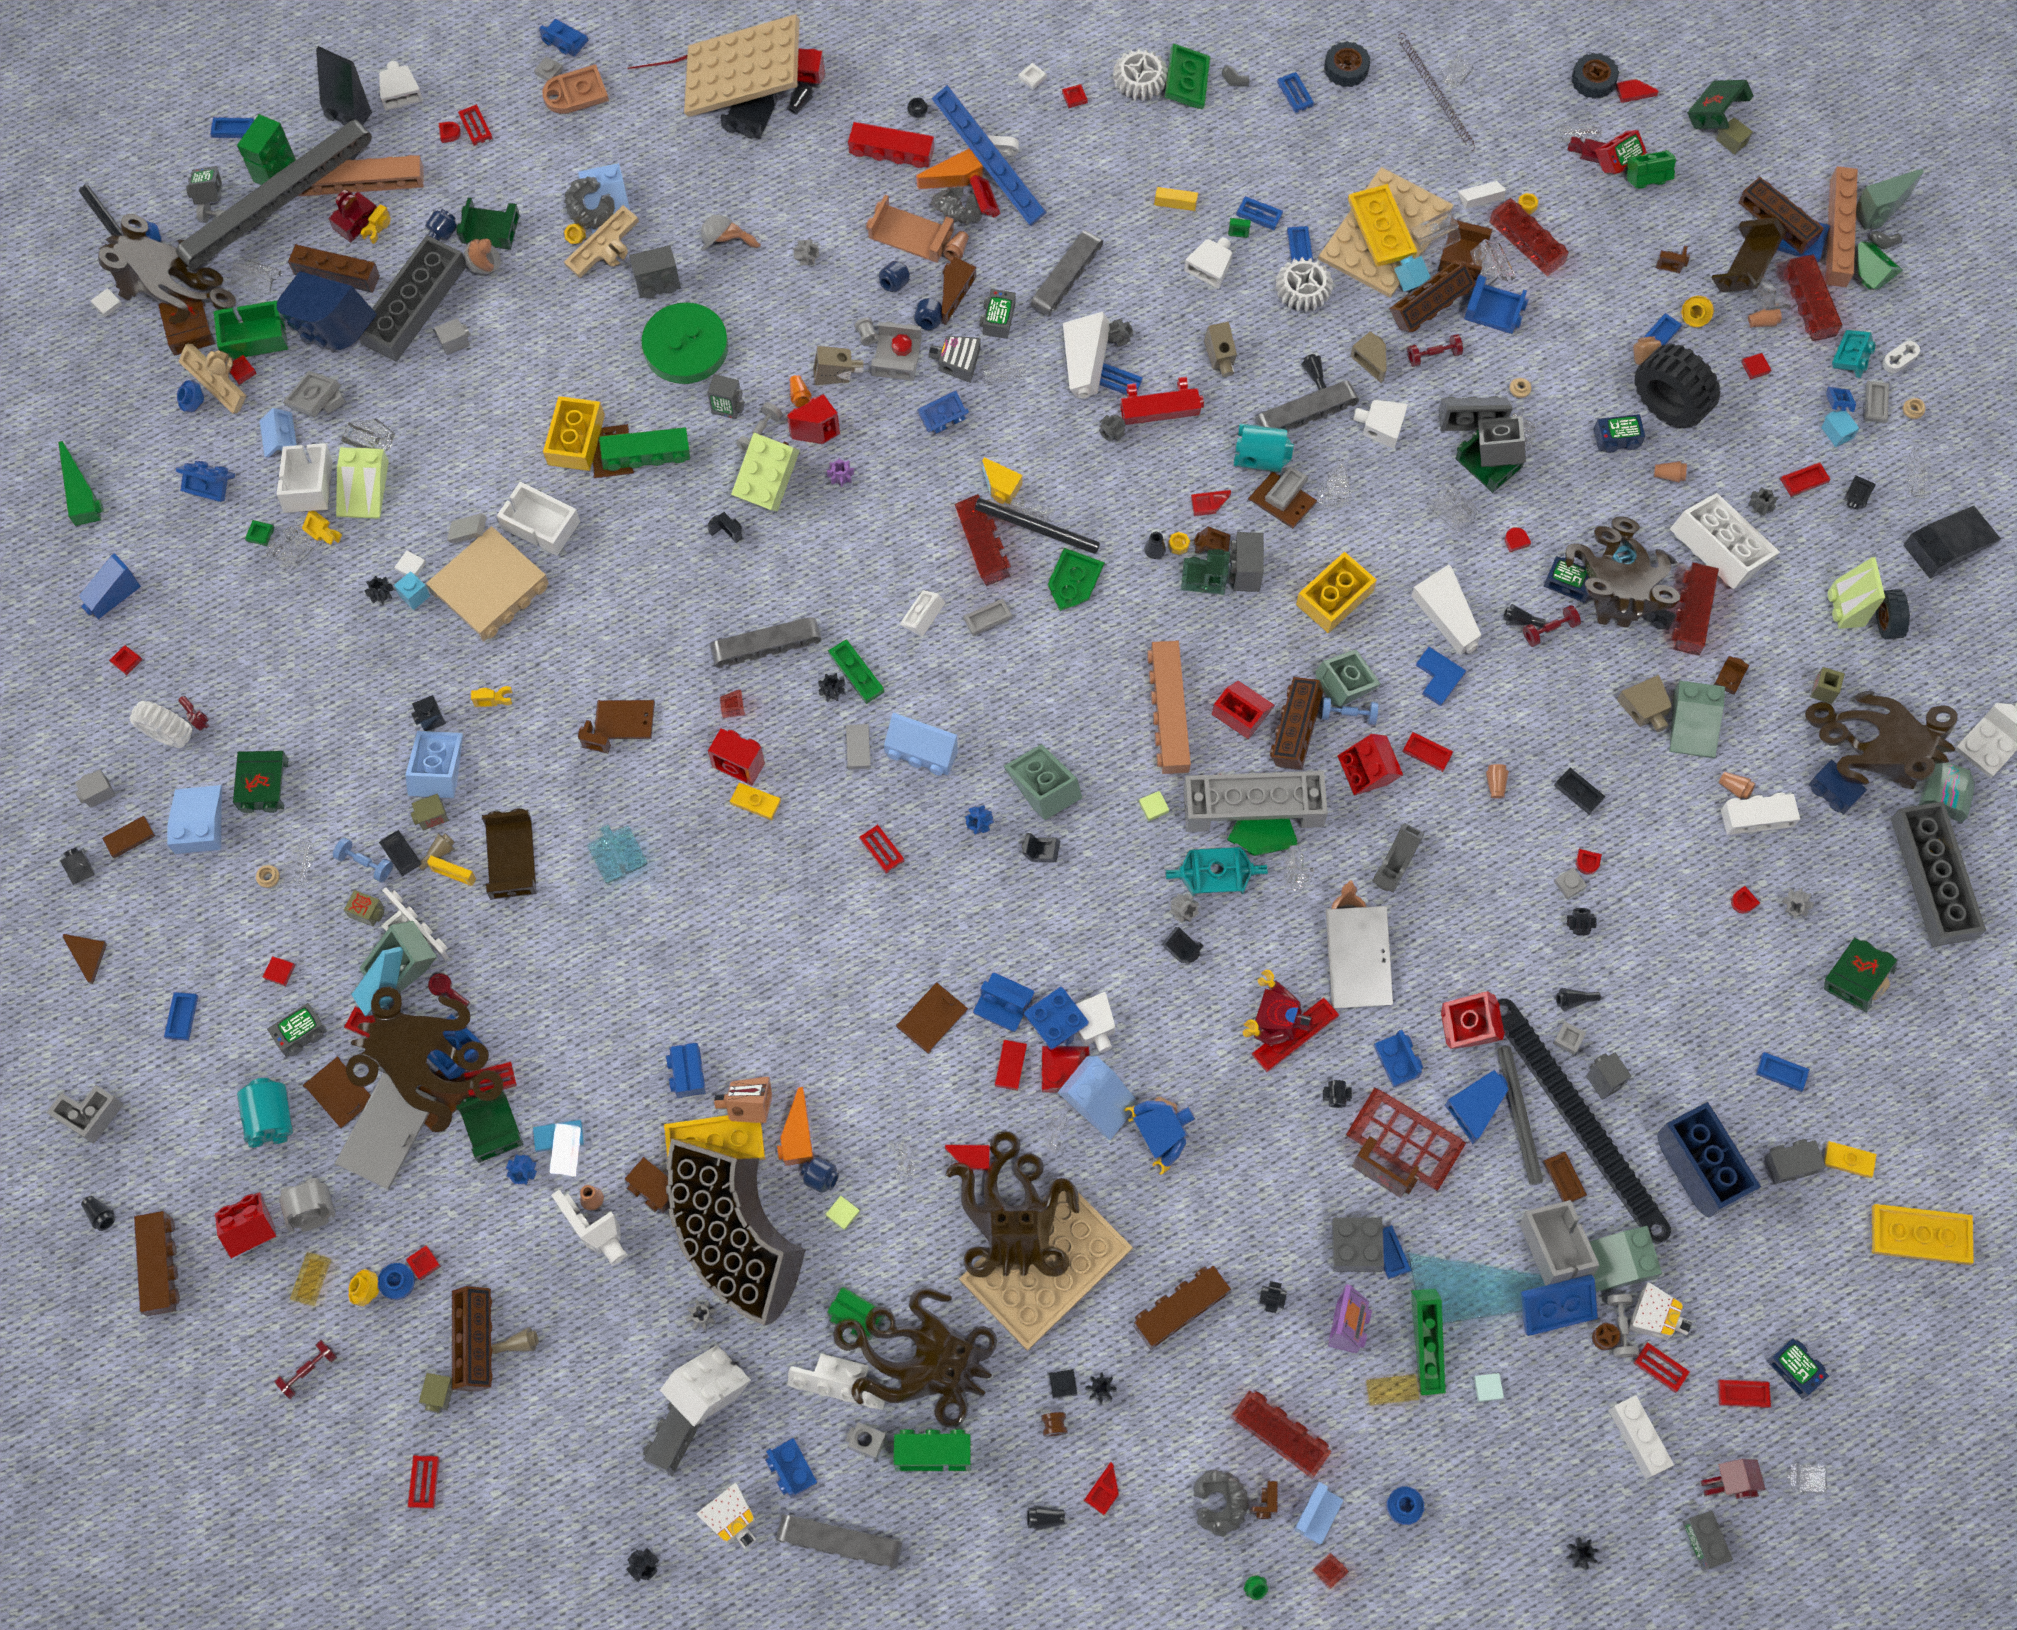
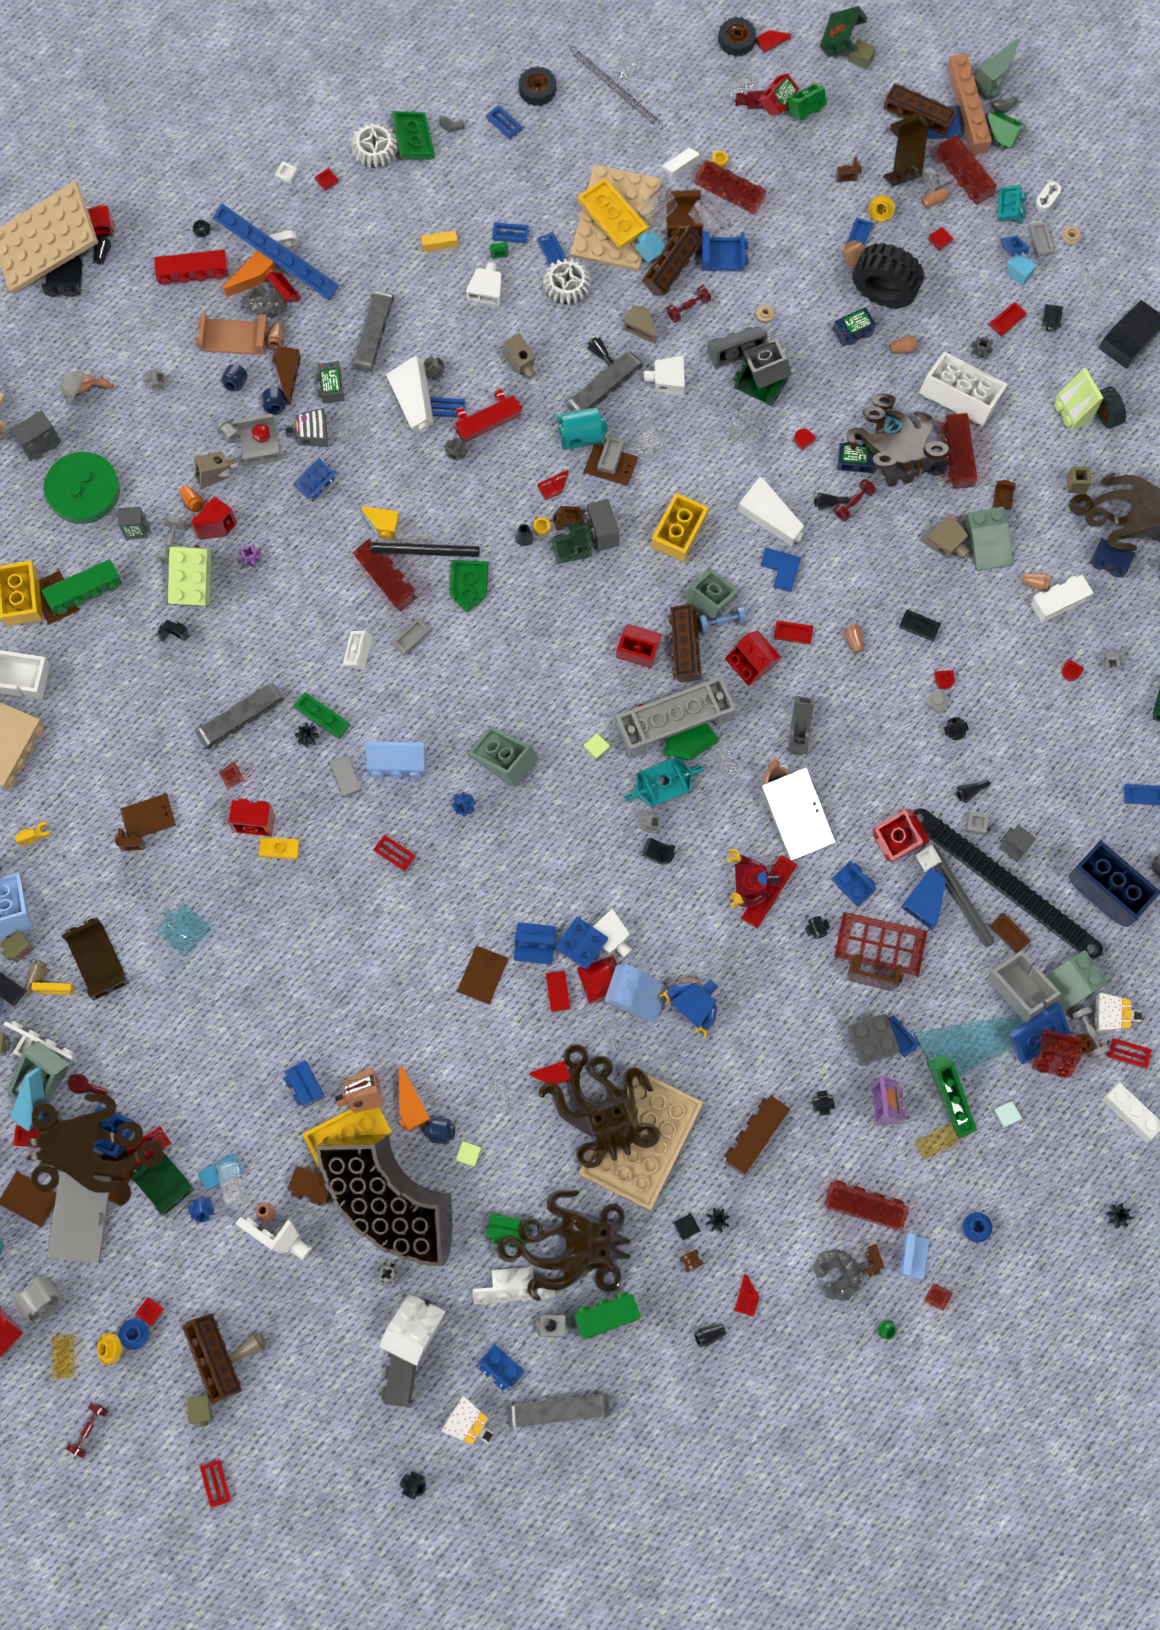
camera: 20 degrees left, 5 degrees up
(1040, 848) = (520, 811): black bracket -> none
(1170, 707) = (581, 662): nougat brick -> none
(1497, 1058) = (928, 858): none -> white tile
(1572, 1336) = (1058, 1054): none -> clear red bracket

